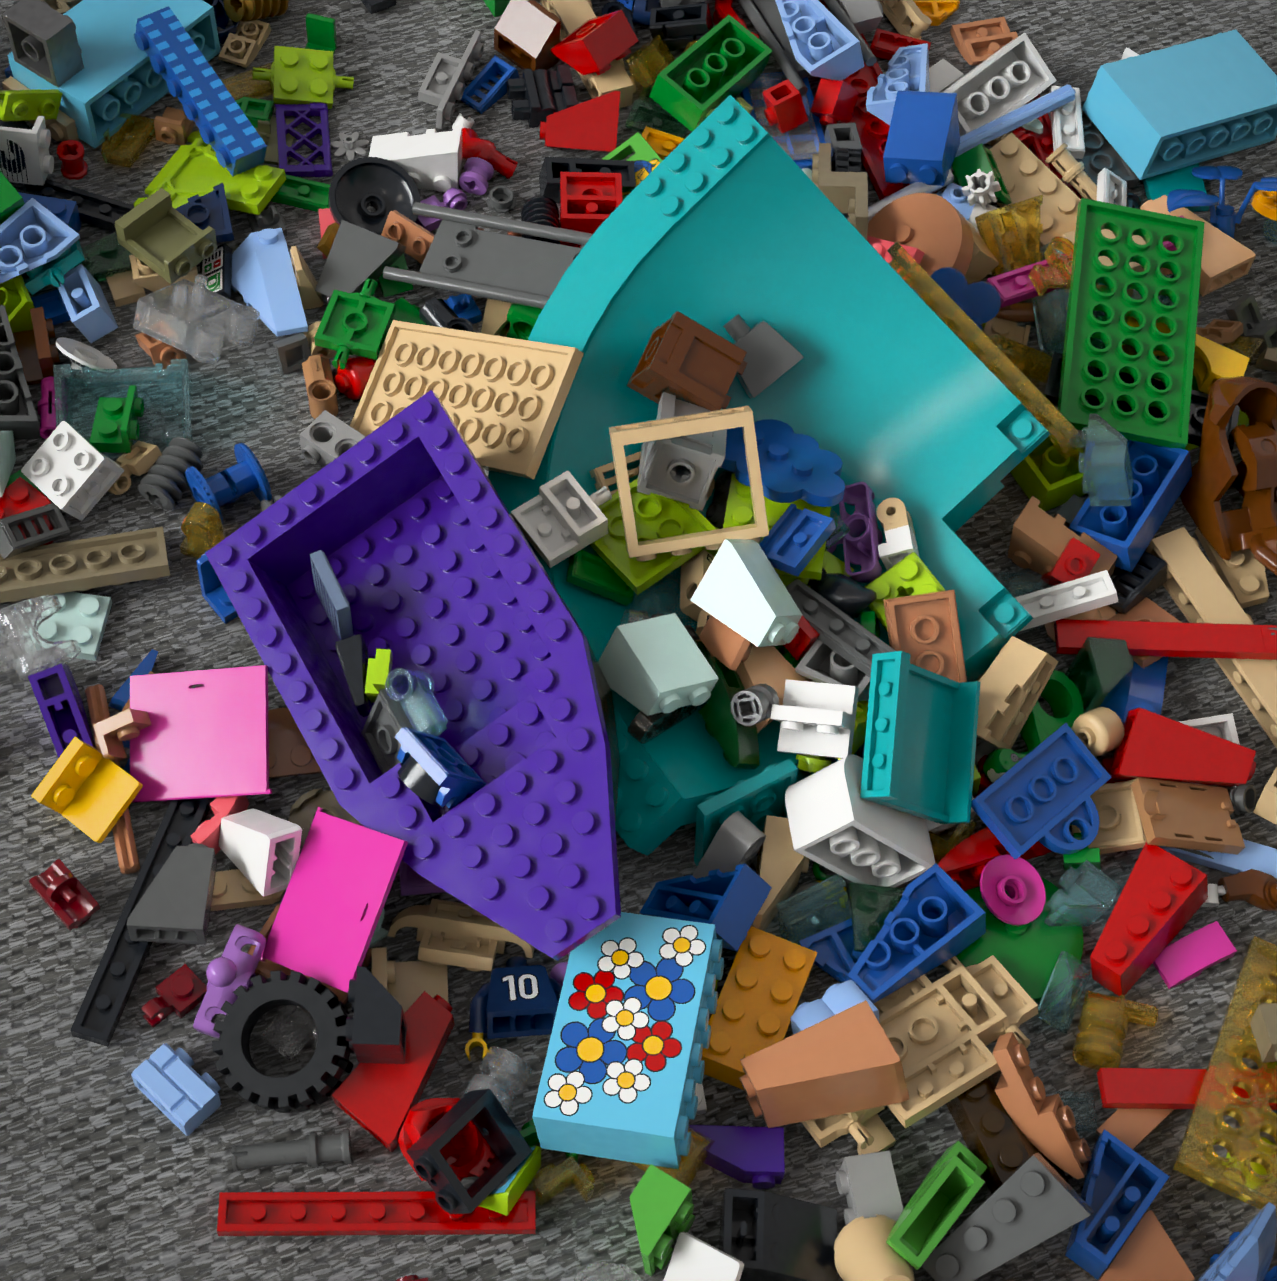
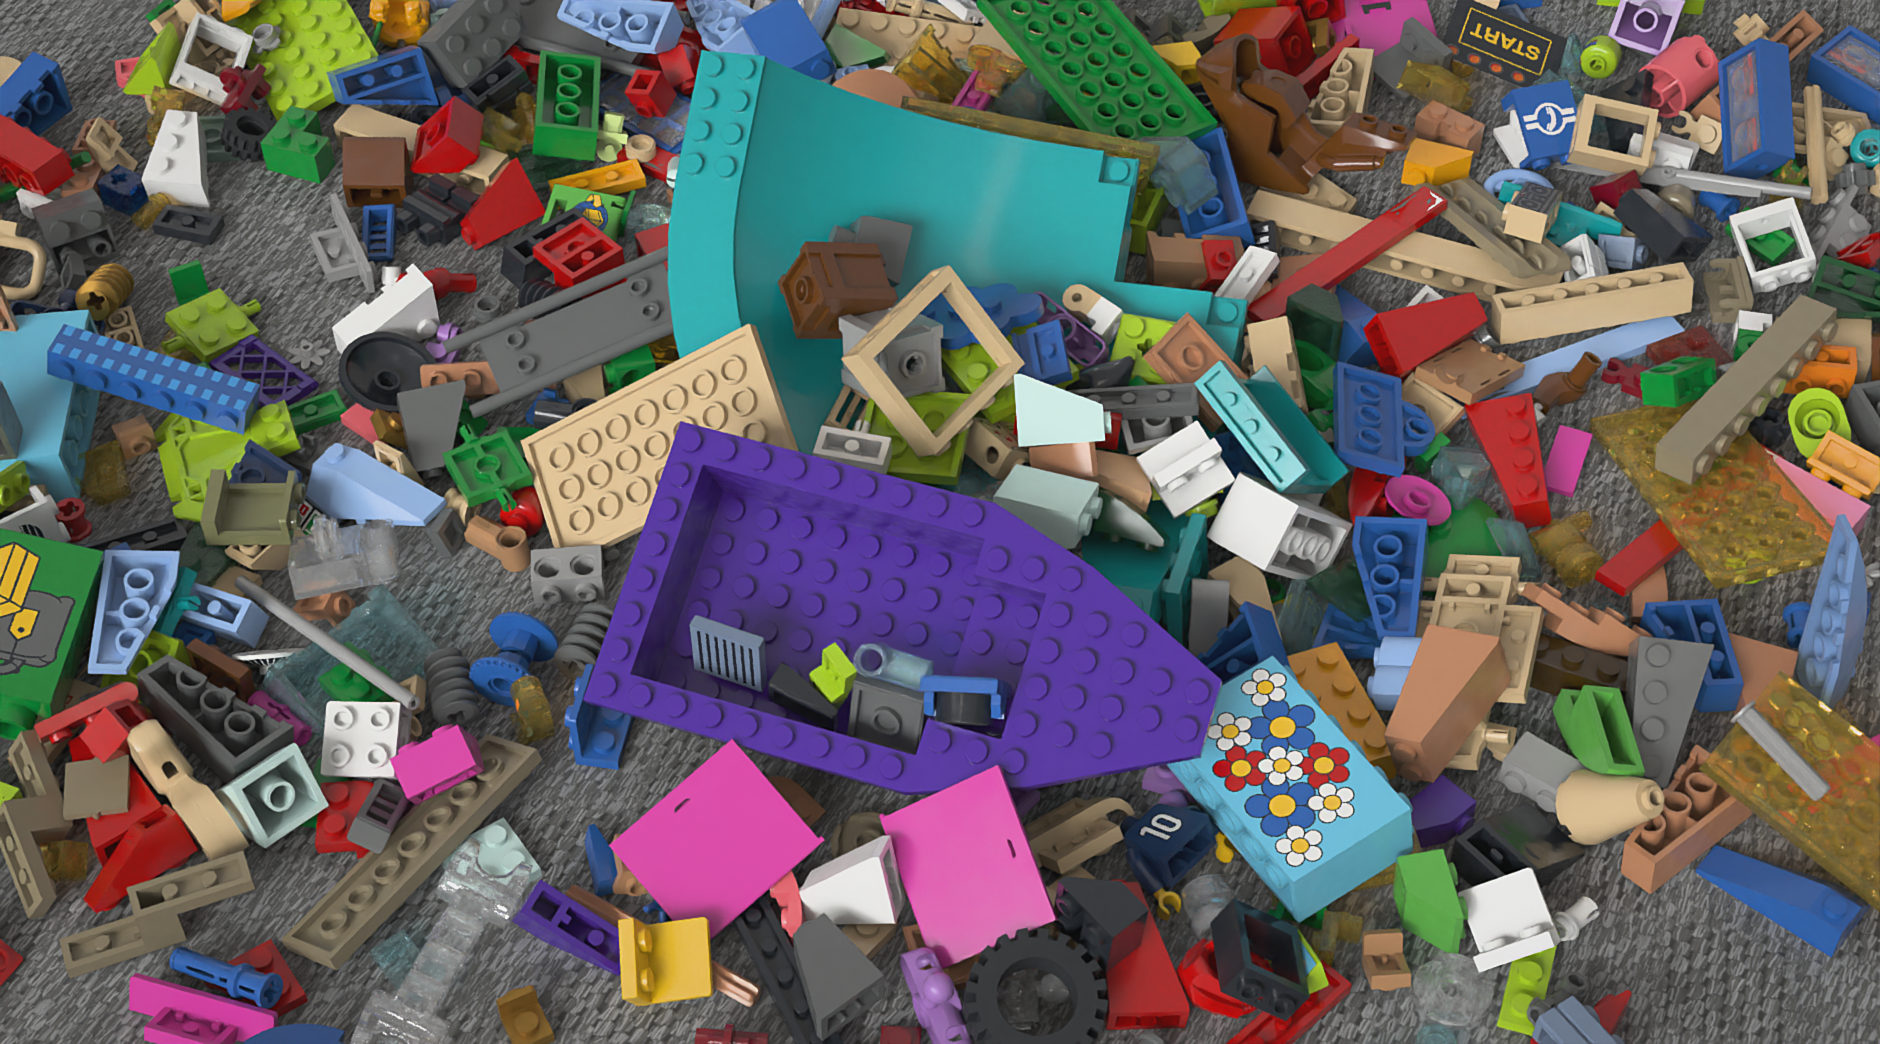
camera: 35 degrees left, 10 degrees down
(96, 523) = (437, 763): none -> dark pink slope
(118, 377) = (328, 643): none -> light grey piece
(119, 728) = (645, 886): medium nougat bracket -> none
(476, 176) = (450, 304): medium lavender wheel -> none
(581, 1234) = (1384, 959): none -> medium nougat bracket
(753, 704) = (1136, 481): flat silver wheel -> none
(981, 188) = (866, 47): white gear -> none
(1099, 730) = (1360, 351): tan head -> none

